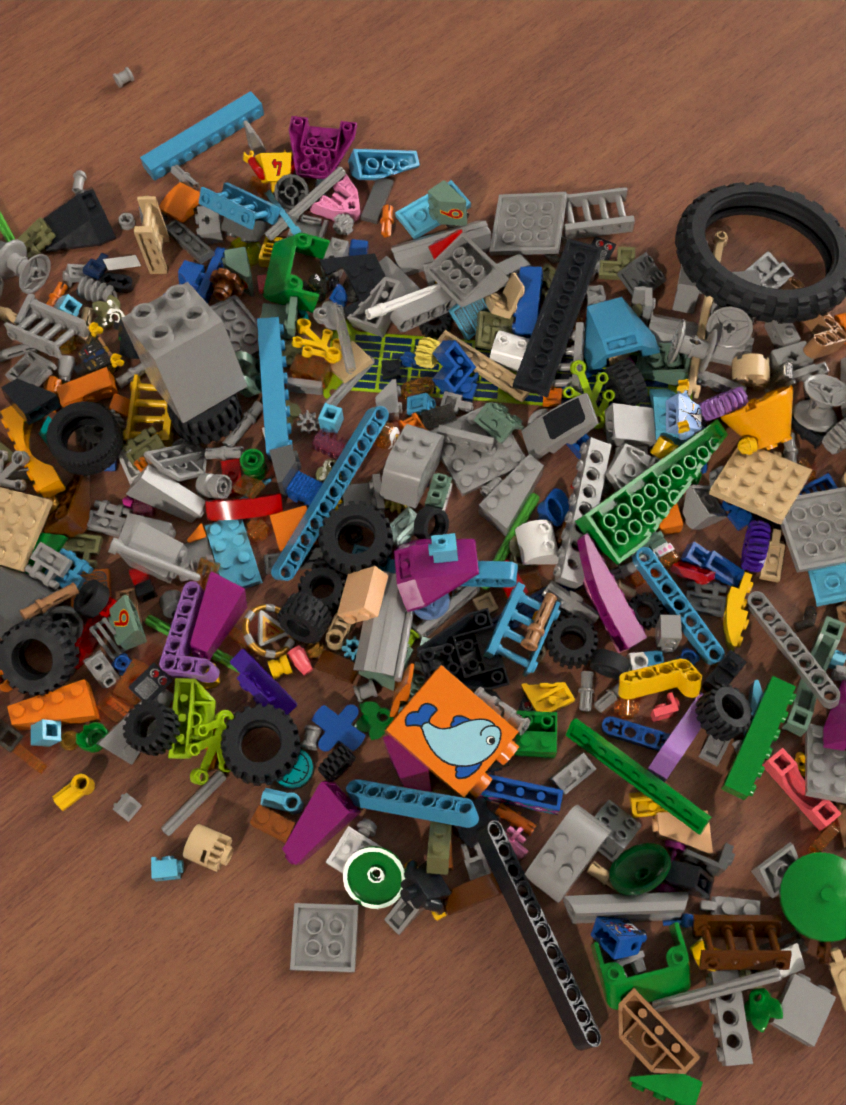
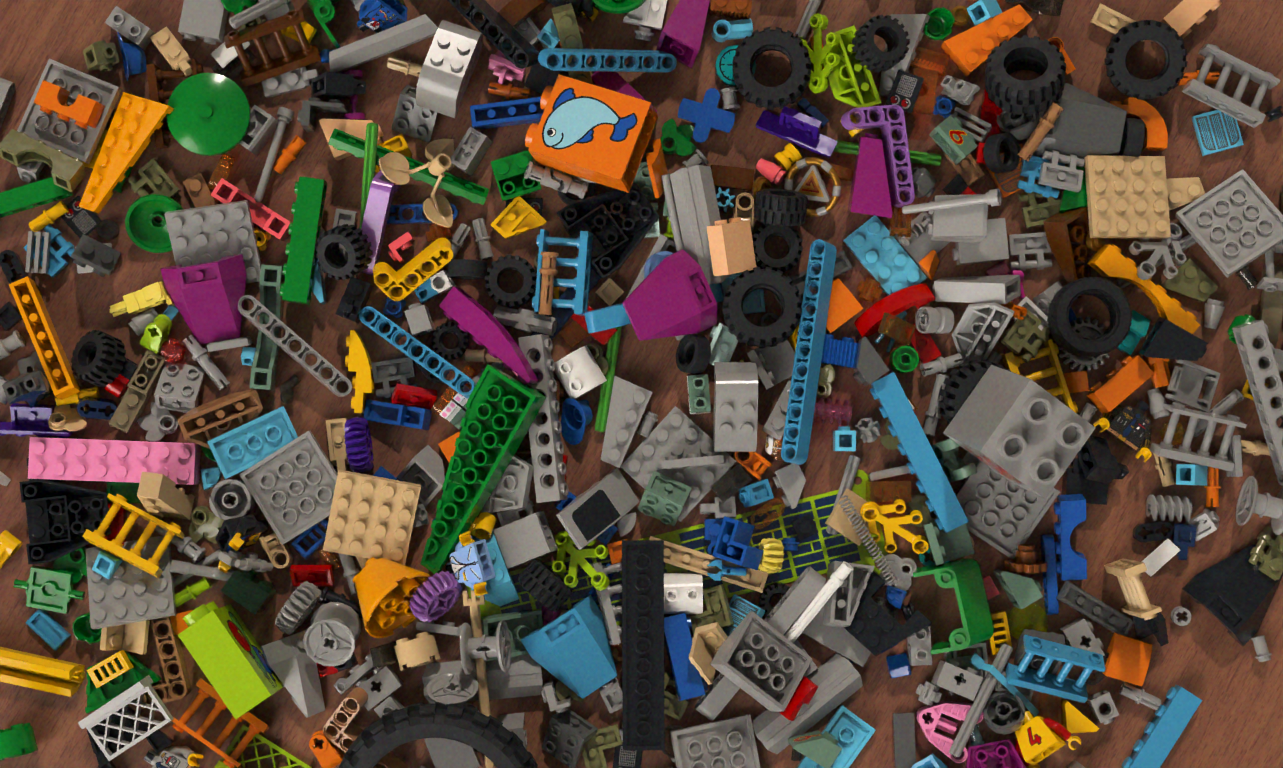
camera: 155 degrees right, 20 degrees up
(106, 311) = (1142, 486): olive plate -> none
(110, 475) = (1044, 299): none -> light grey bracket
(215, 177) = (1094, 703): none -> light grey brick
(239, 693) = (812, 111): none -> dark blue plate
(240, 173) = (1074, 720): none -> yellow slope
(317, 222) = (966, 687): none -> light grey brick
(317, 285) = (927, 594): clear smoke hips -> none
(336, 763) = (694, 79): black tyre -> none
(378, 451) = (776, 421): none -> light grey plate
(386, 221) = (881, 717): orange axle -> none
(443, 548) = (665, 314): medium azure brick -> none
(458, 856) = (549, 34): none -> medium azure slope
(472, 353) = (739, 571): none -> dark azure bar
(640, 869) = (386, 84): dark green dish -> none
(650, 770) = (438, 152): none -> tan plant
(678, 777) = (369, 164): none -> bright green axle
(746, 871) = (284, 117): none -> light grey piece
(747, 445) = (396, 551): yellow plate -> none
(750, 834) = (289, 154): none -> orange pin
(826, 459) = (317, 574): none -> red plate

